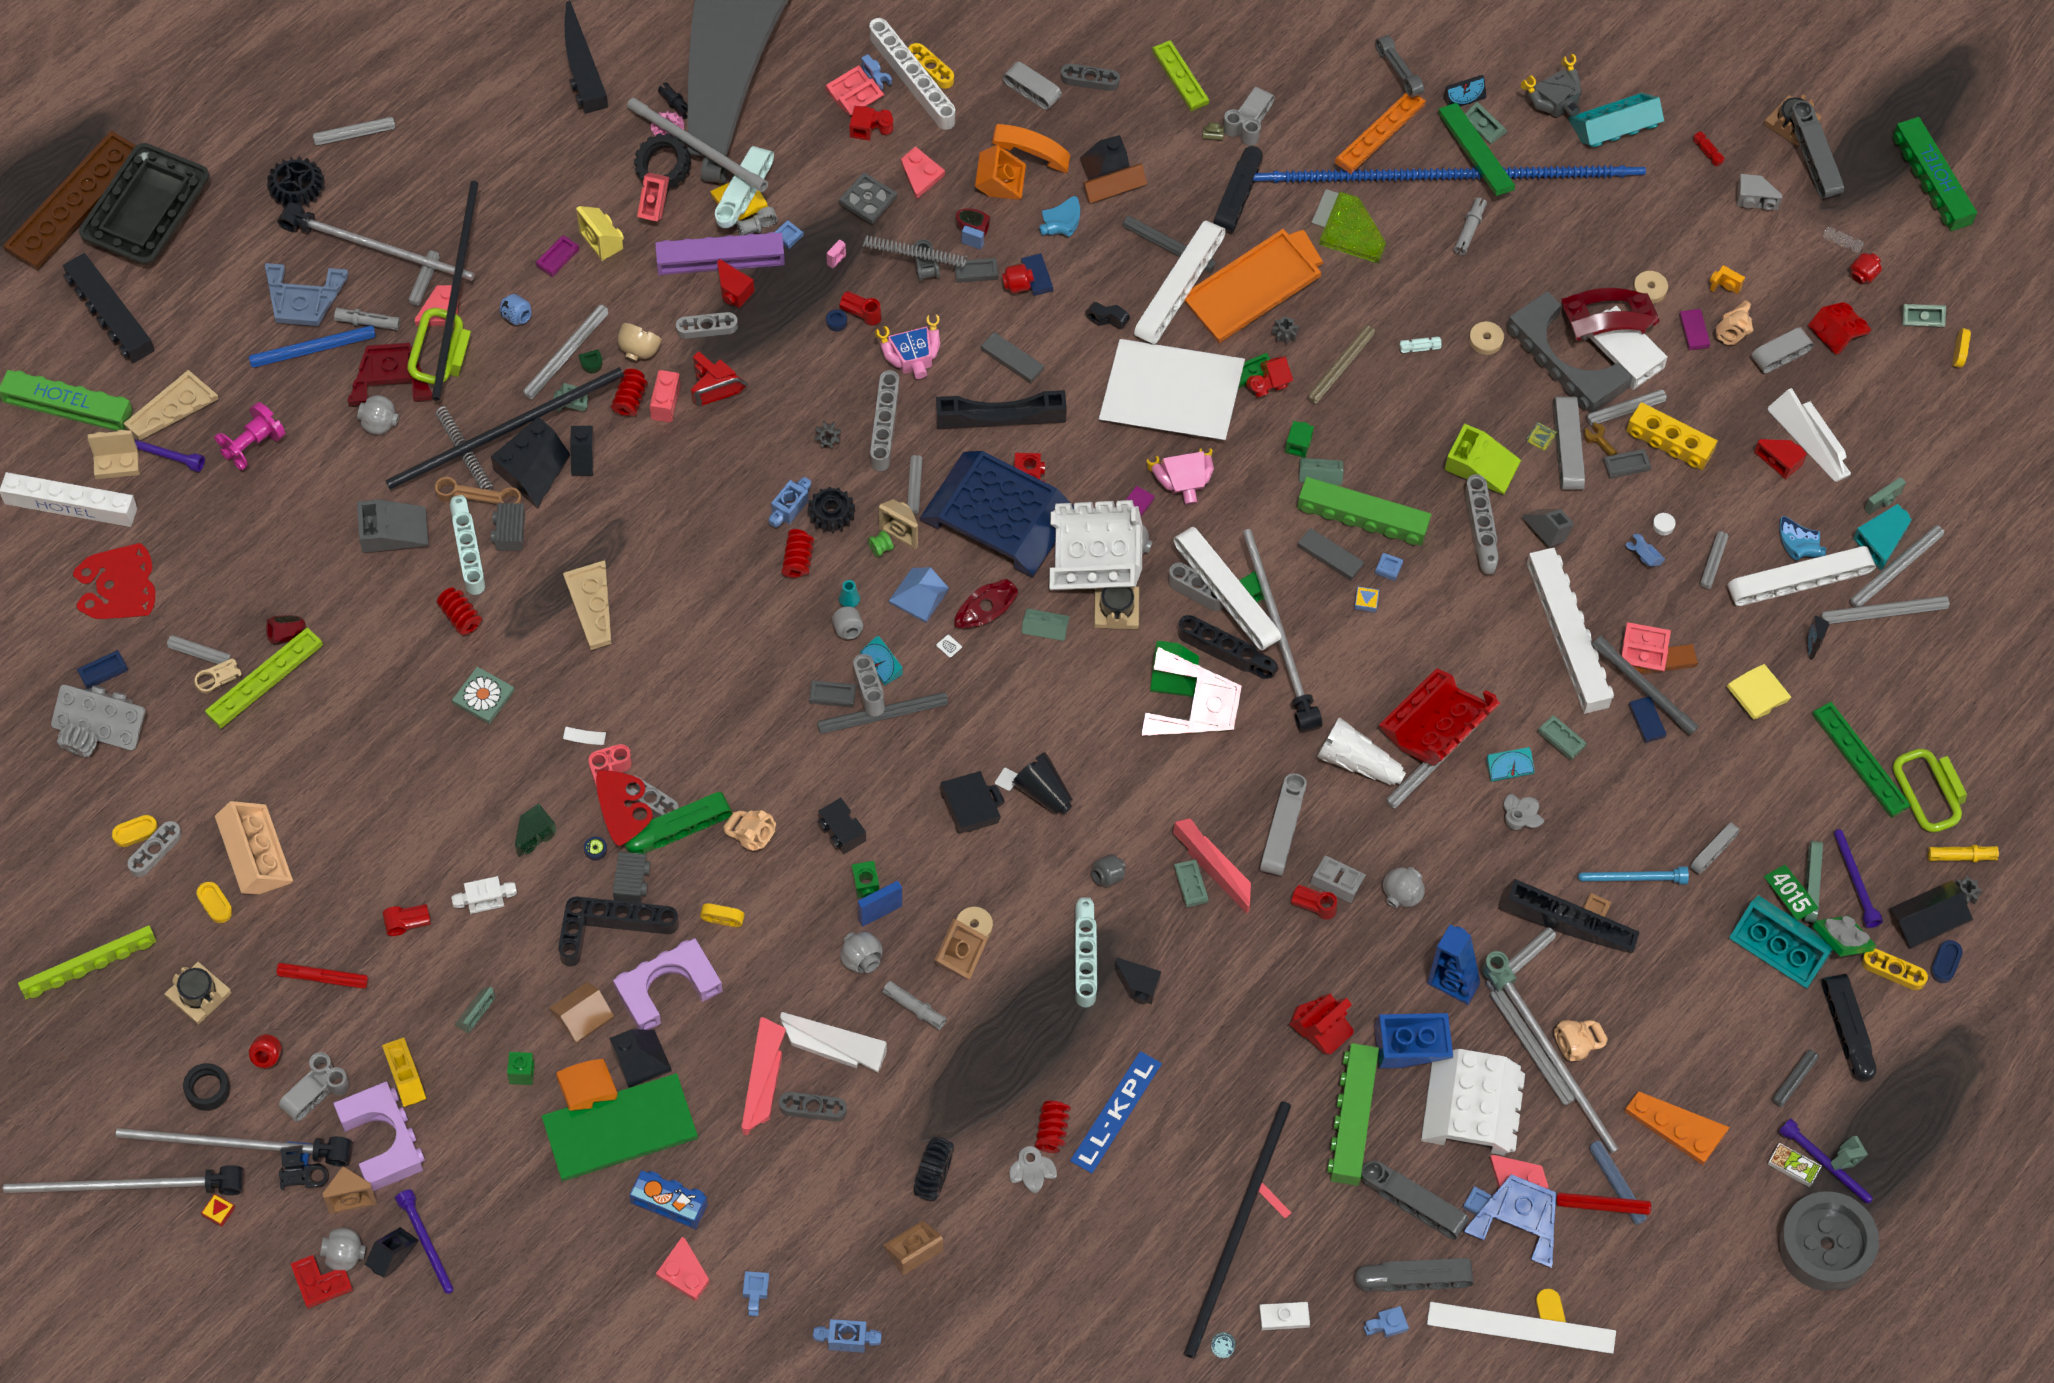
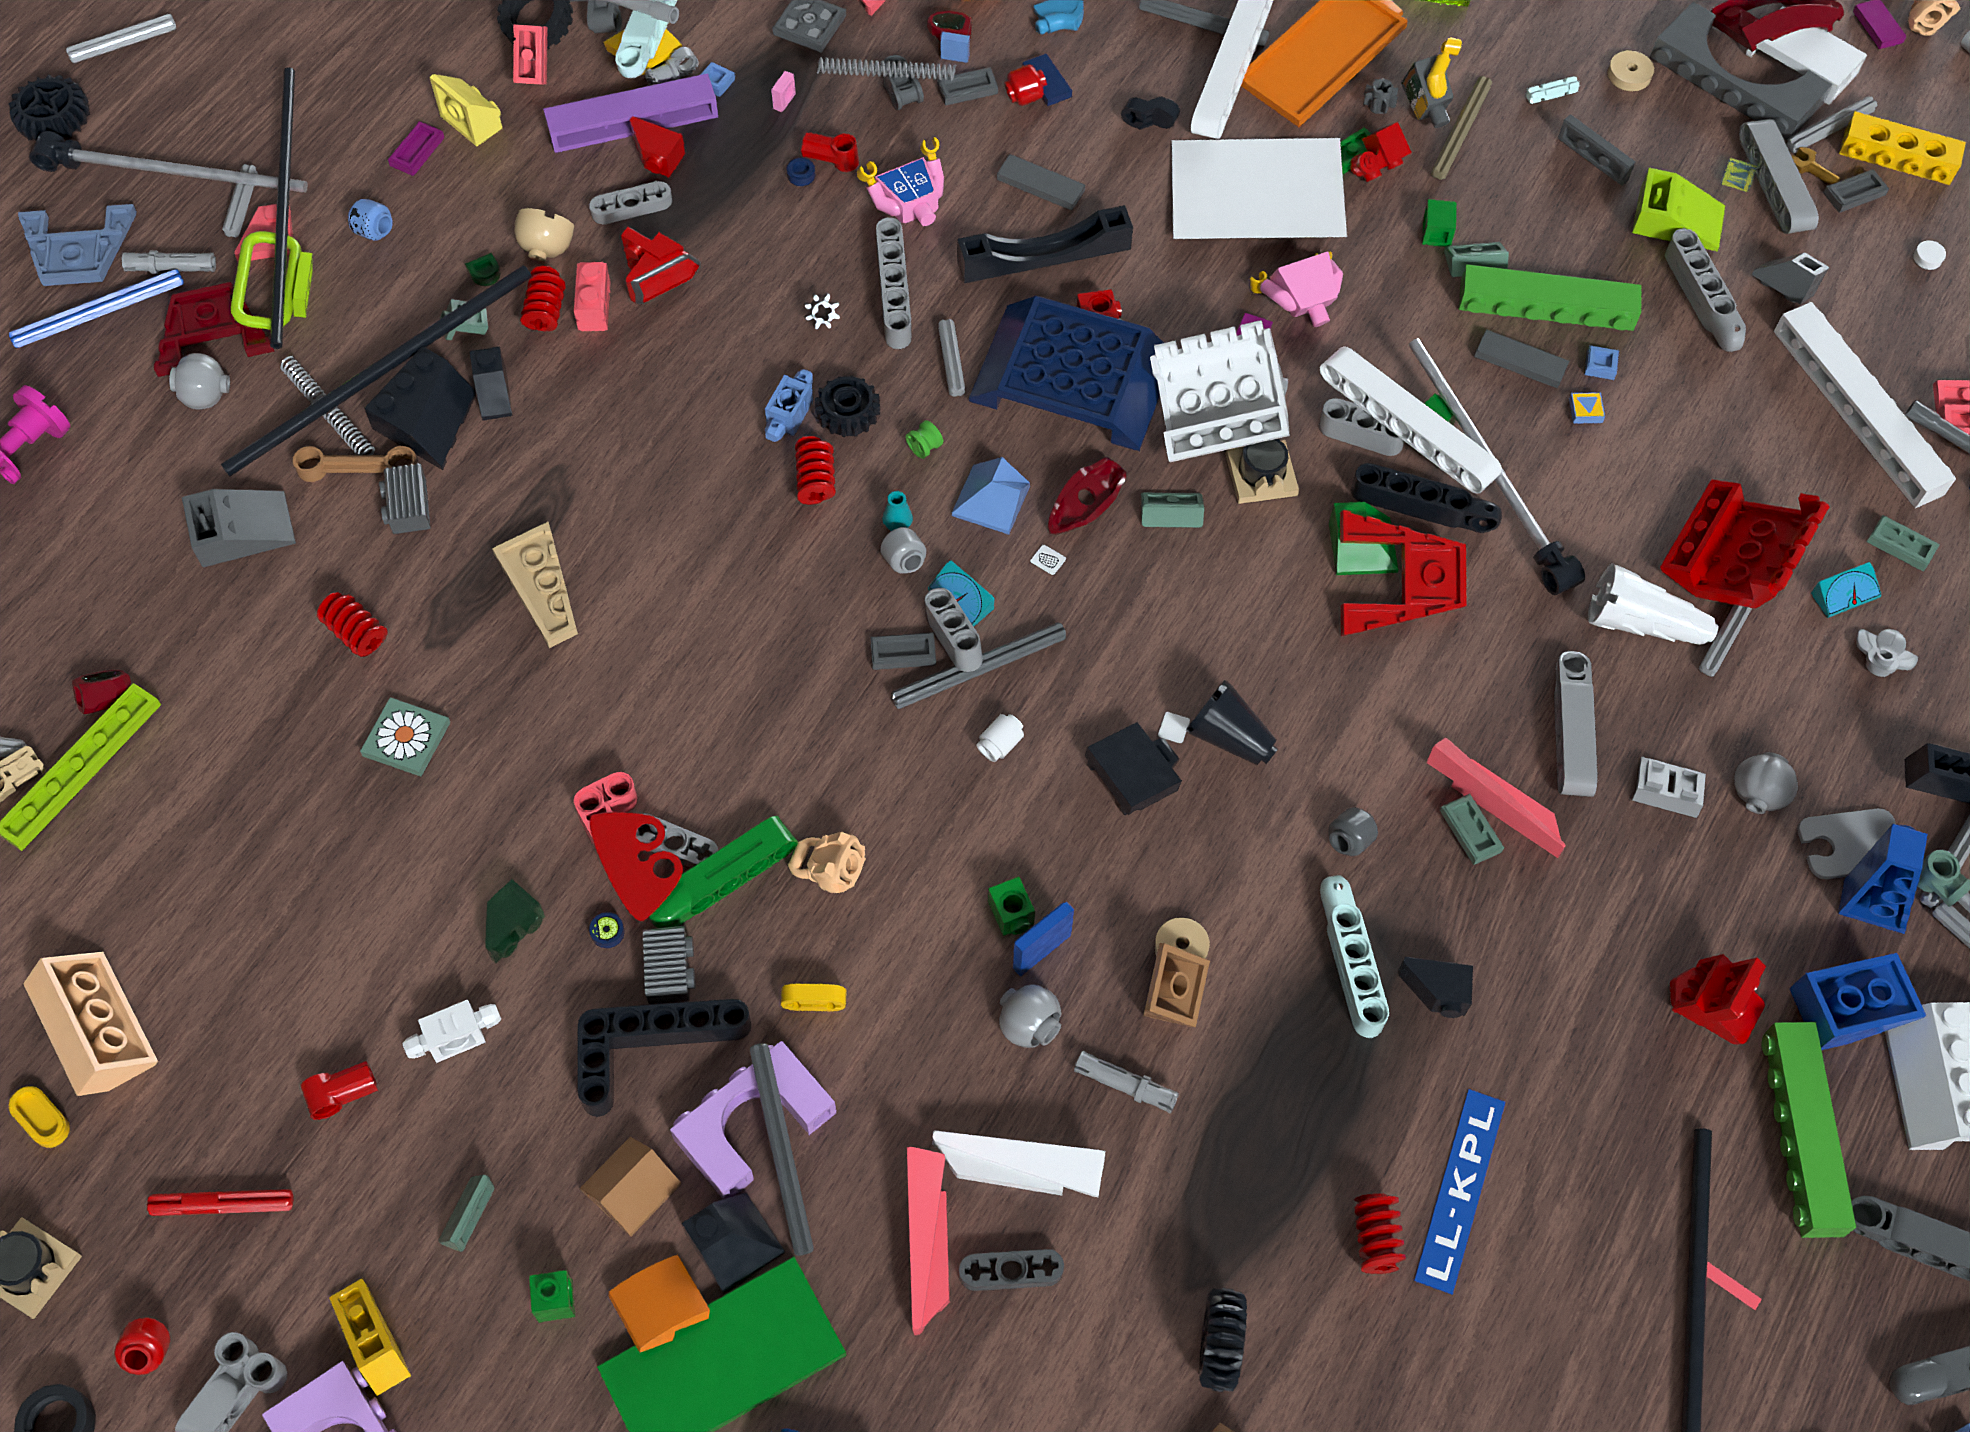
camera: 10 degrees left, 0 degrees up
(469, 552) = (353, 541): light aqua piece -> none
(565, 352) = (446, 264): light grey axle -> none
(583, 736) = (561, 770): white sticker -> none
(681, 1005) = (781, 1149): none -> dark grey axle
(843, 831) = (961, 840): black brick -> none
(885, 765) = (1000, 737): none -> white brick
(899, 522) = (945, 407): tan slope -> none
(1032, 1172) = (1367, 1311): light grey plate -> none
(1313, 901) = (1650, 824): red piece -> none
(1319, 330) = (1429, 85): none -> torso
(1436, 400) = (1596, 150): none -> dark grey tile
(1475, 927) = (1849, 835): none -> light grey piece
(1648, 553) = (1927, 294): medium blue plate -> none

